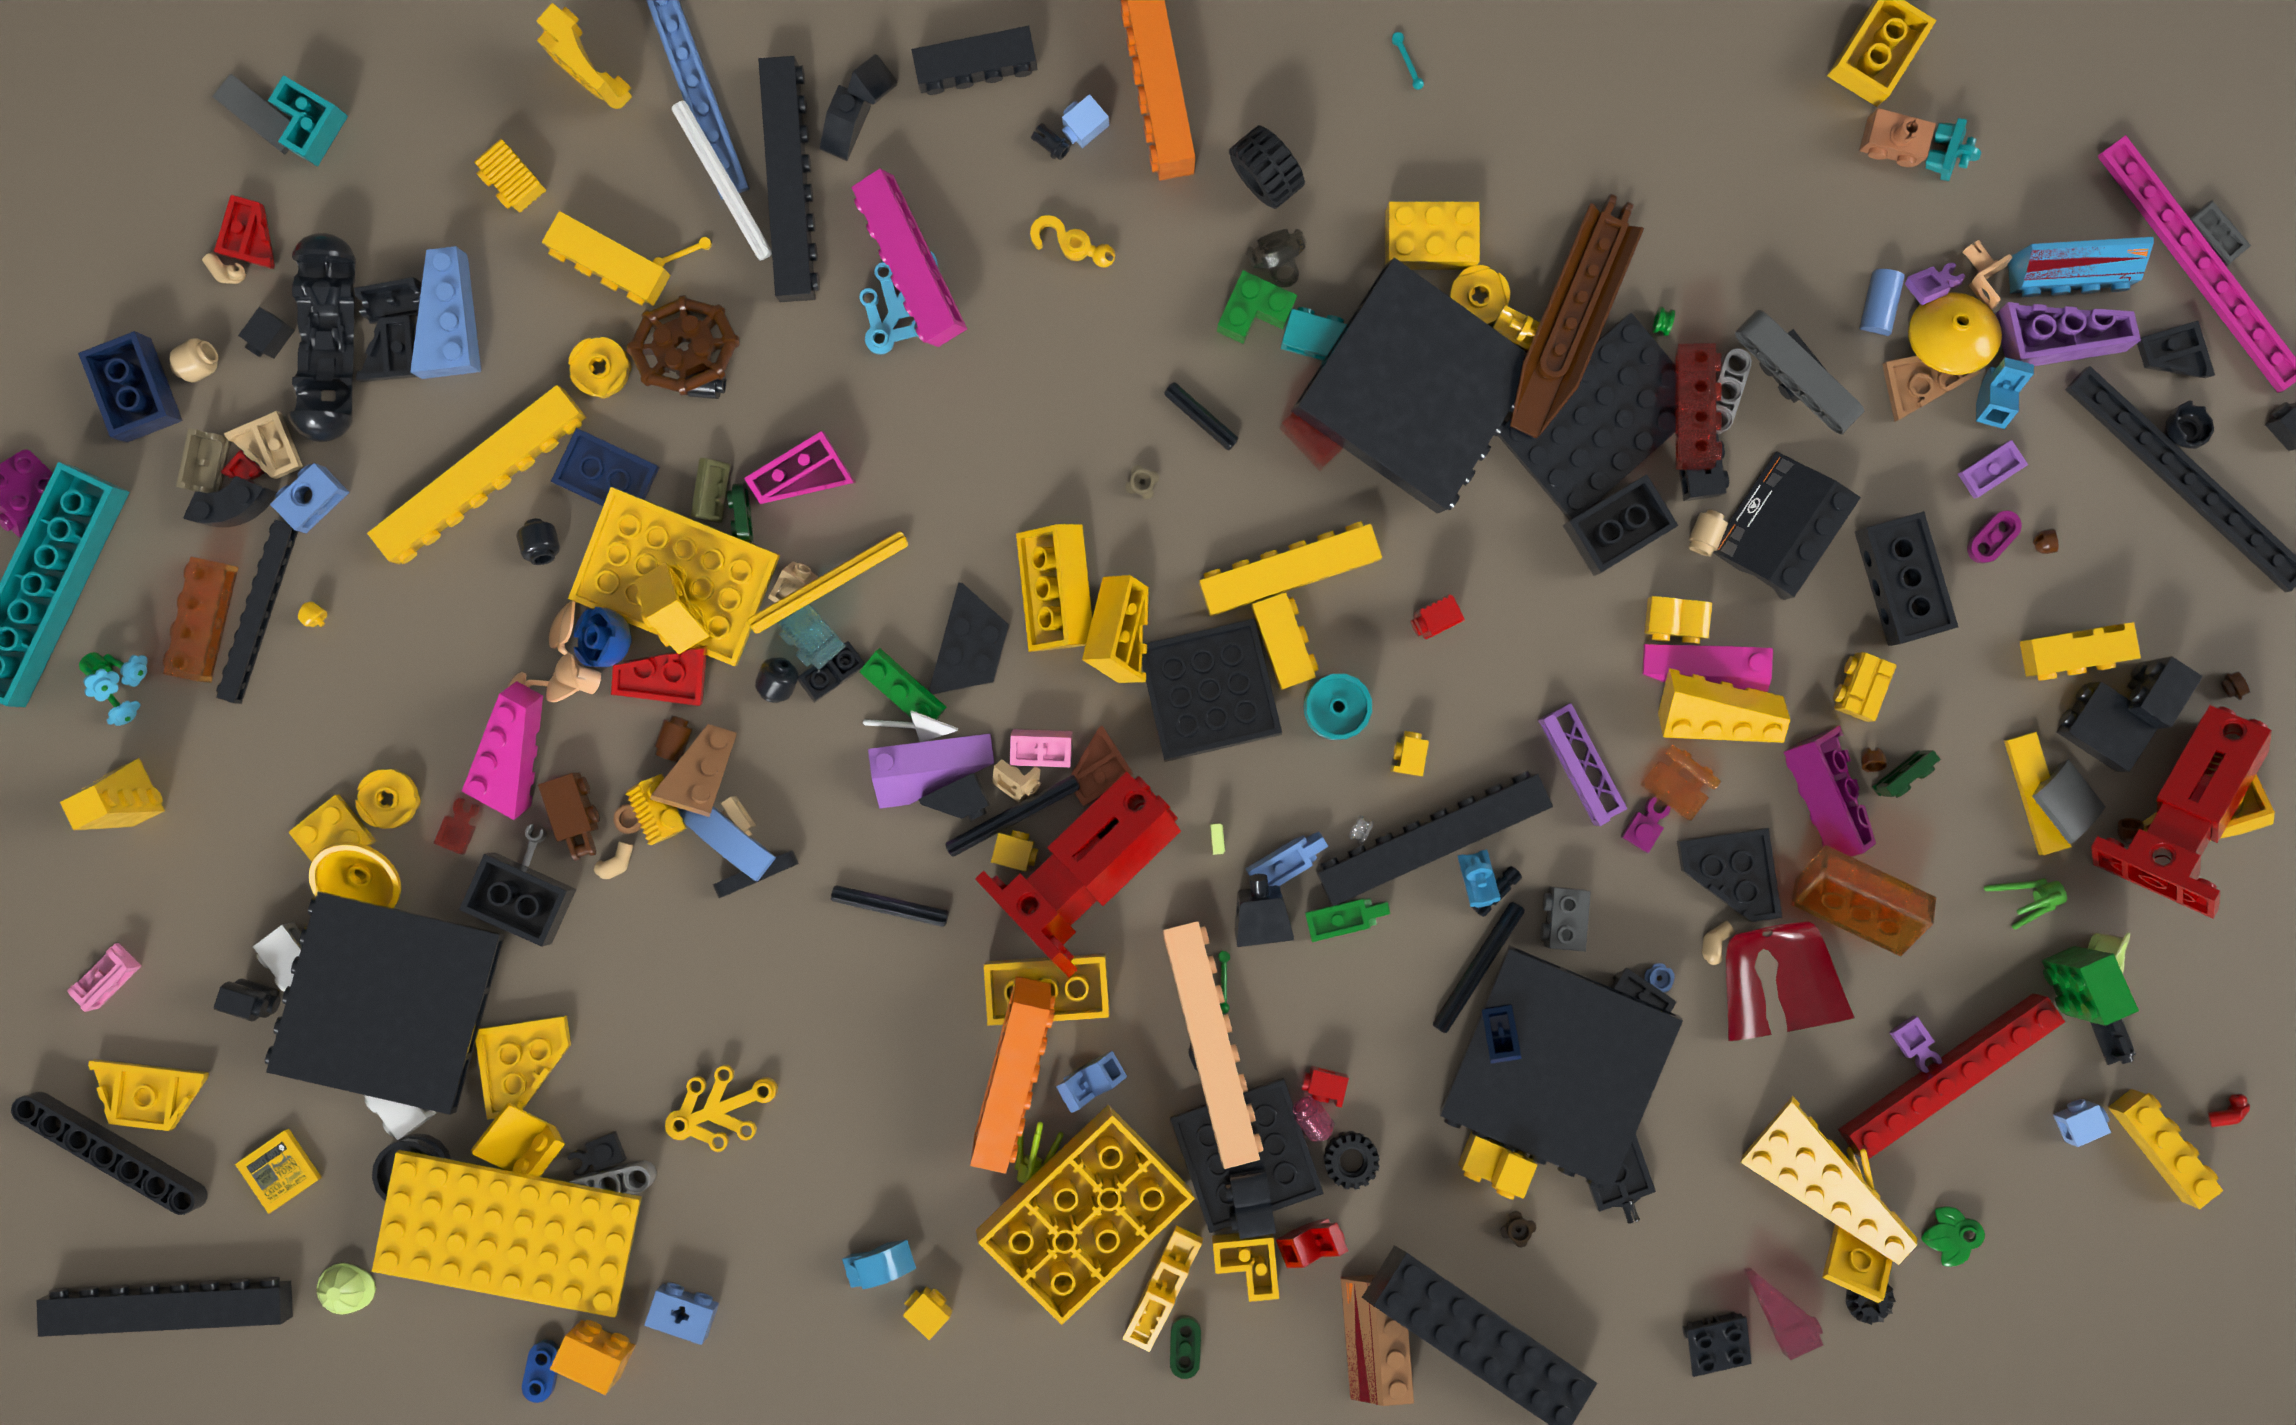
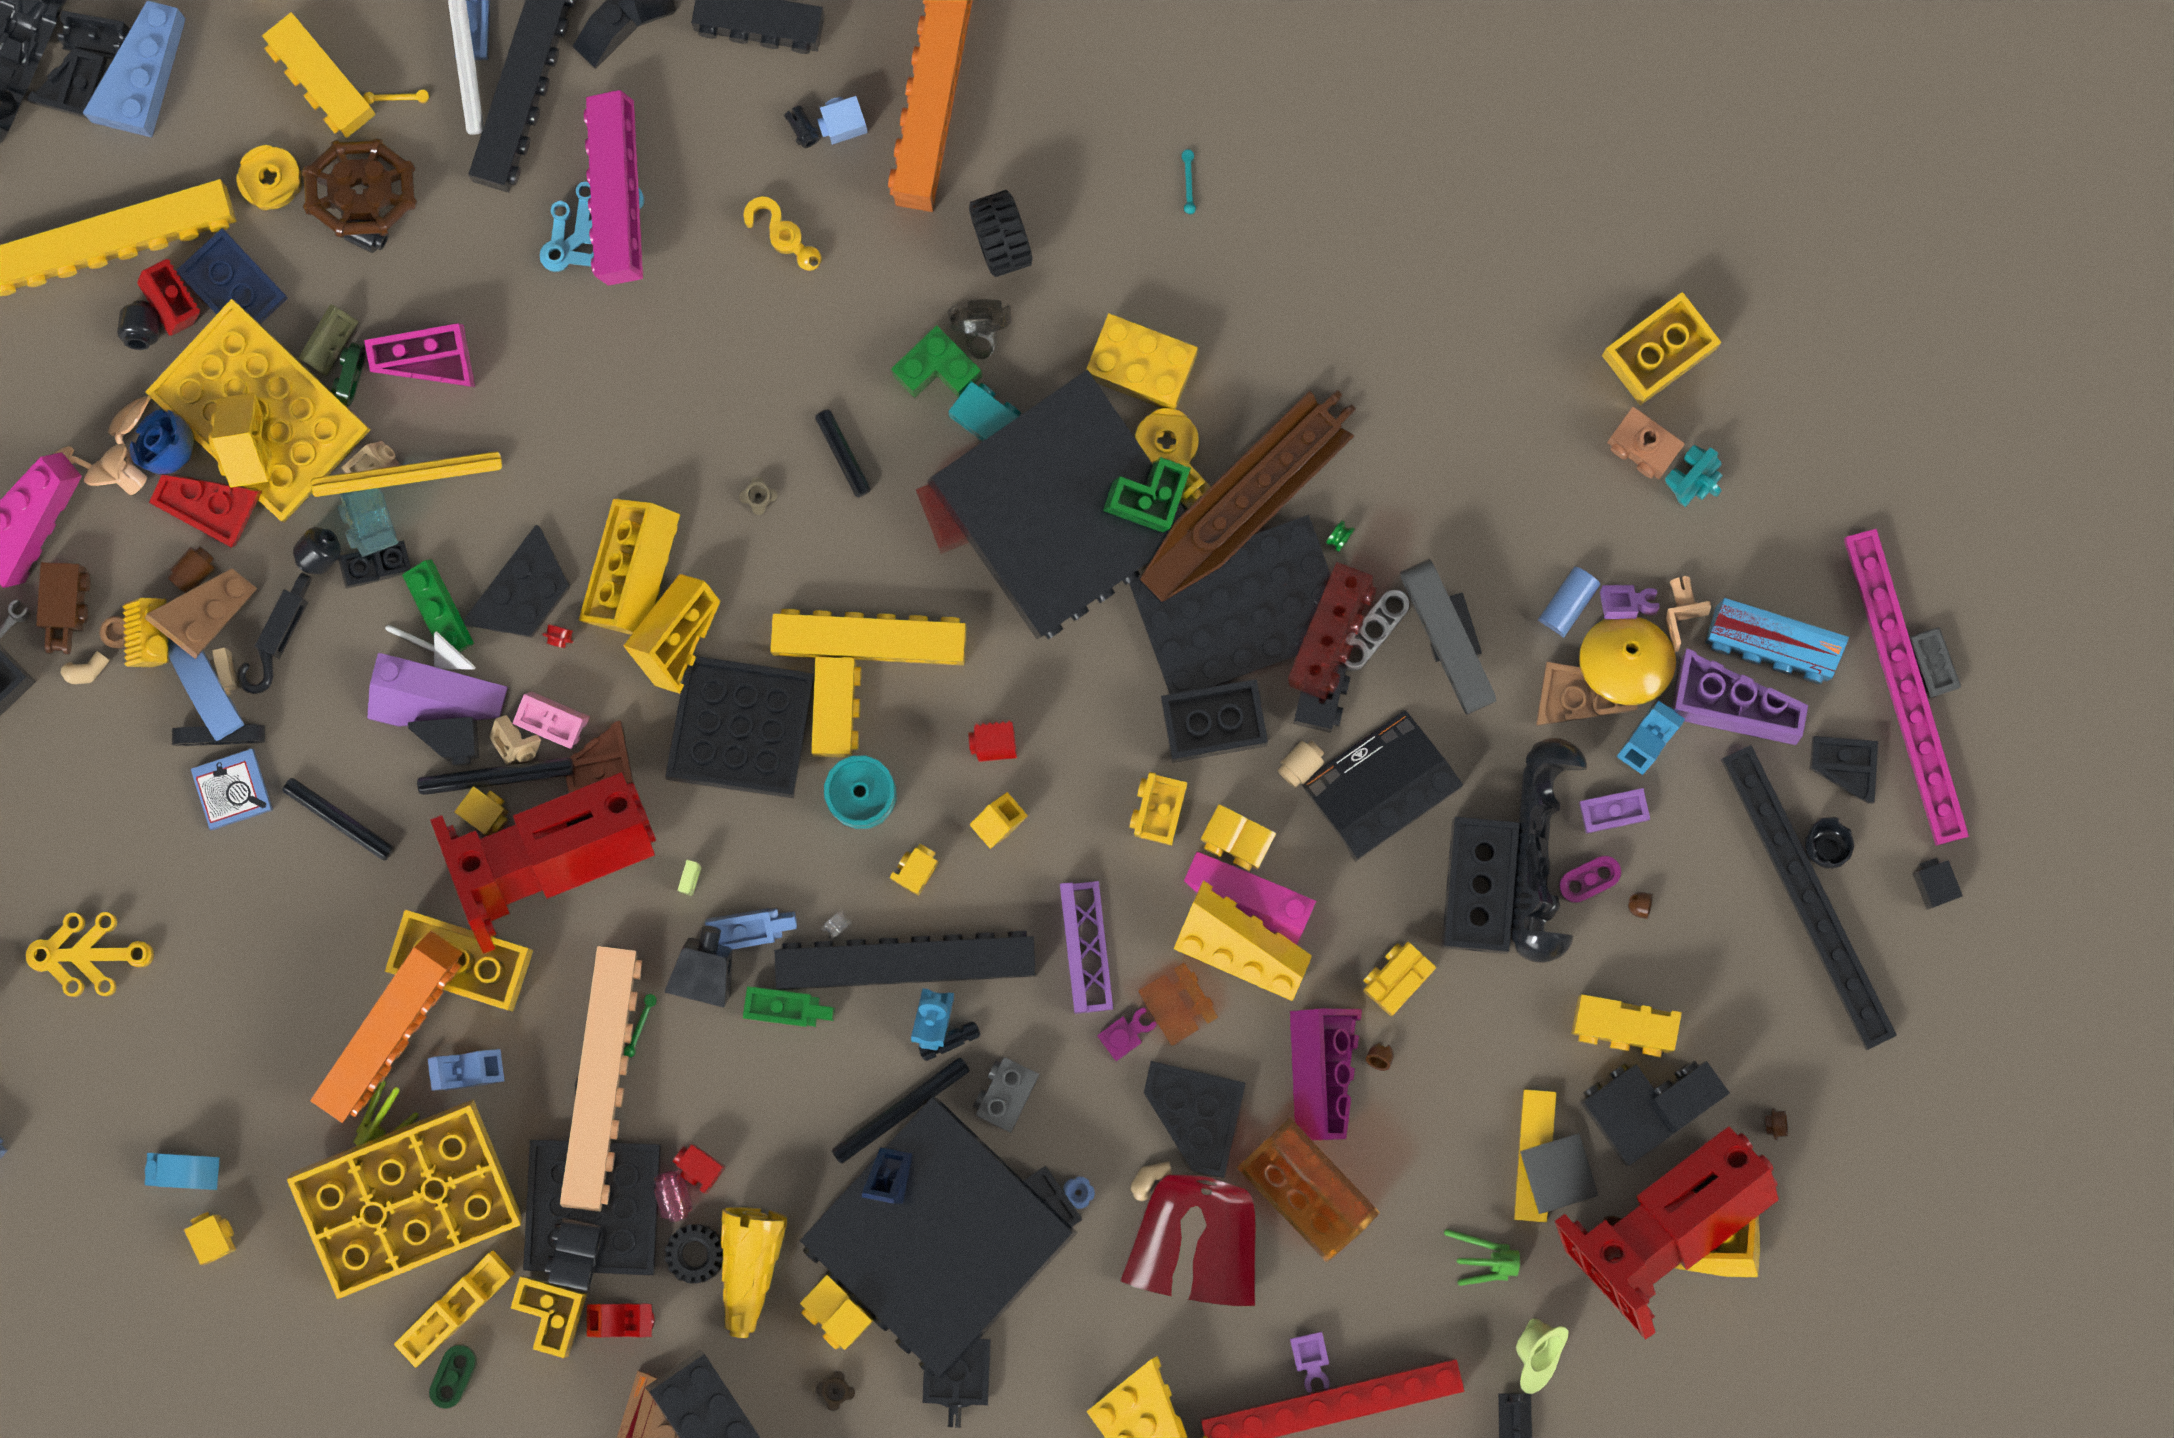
camera: 25 degrees right, 5 degrees down
(554, 506) = (168, 297): none -> red brick
(771, 766) = (277, 633): none -> black piece
(786, 916) = (231, 789): none -> tile
(1017, 672) = (558, 636): none -> red plate
(1402, 1142) = (750, 1250): none -> yellow cone
(1467, 684) = (994, 825): none -> yellow brick
(1501, 351) = (1152, 503): none -> green brick
(1600, 620) = (1159, 808): none -> yellow bracket
(1898, 780) = (1392, 1086): dark green plate -> none
(1956, 571) = (1532, 899): none -> black piece
(2089, 985) = (1499, 1362): green brick -> none

